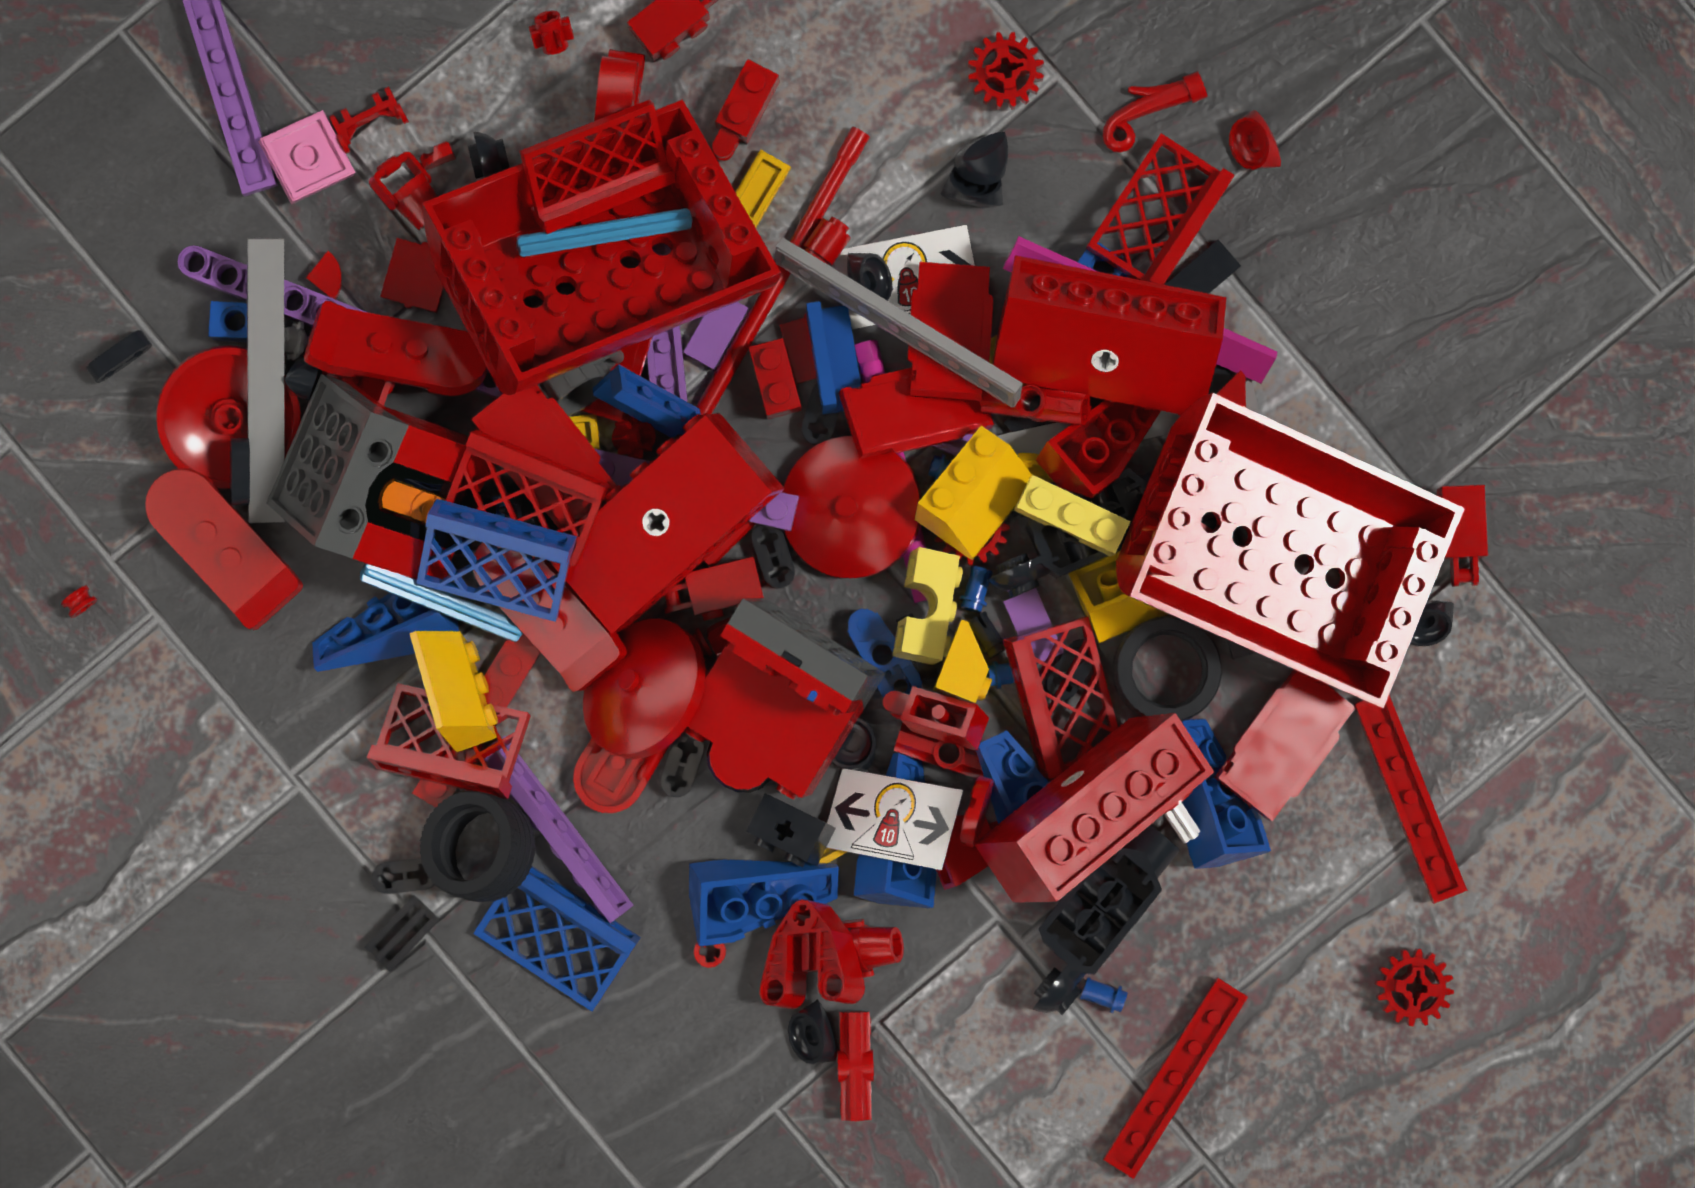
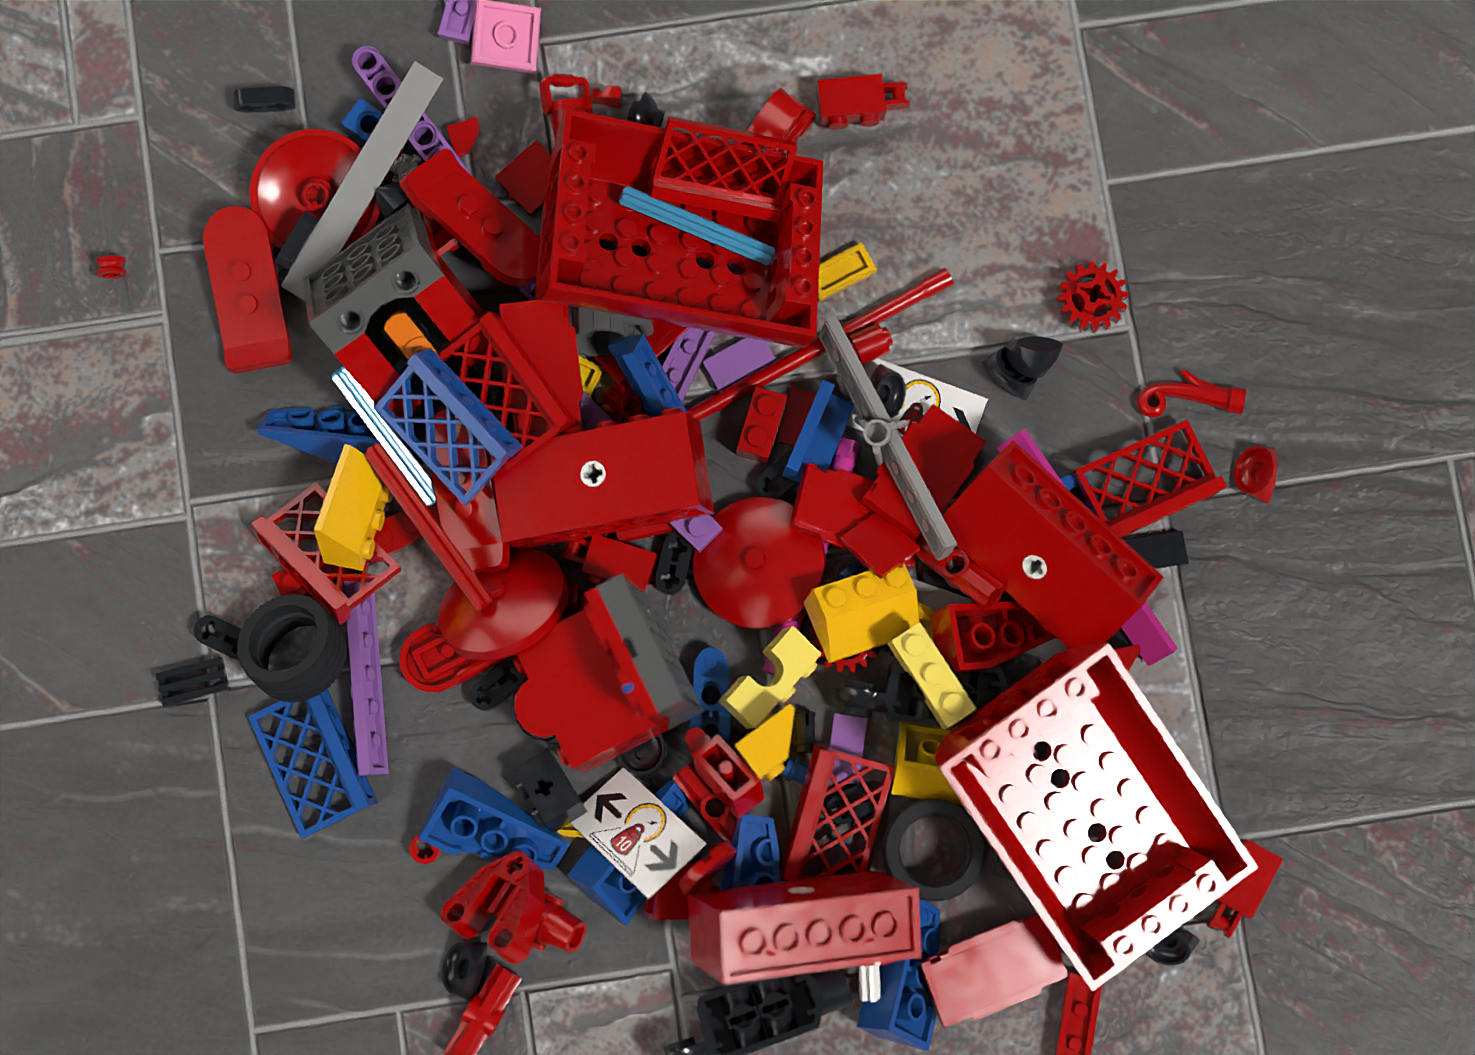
camera: 30 degrees right, 5 degrees down
(383, 108) = (553, 33): red piece -> none
(533, 661) = (428, 527): none -> red axle
(551, 32) = (754, 54): red gear -> none
(743, 108) = (867, 201): red brick -> none
(889, 324) = (878, 434): none -> light grey plant
(952, 424) = (879, 545): none -> red piece
(976, 589) = (818, 690): blue pin -> none

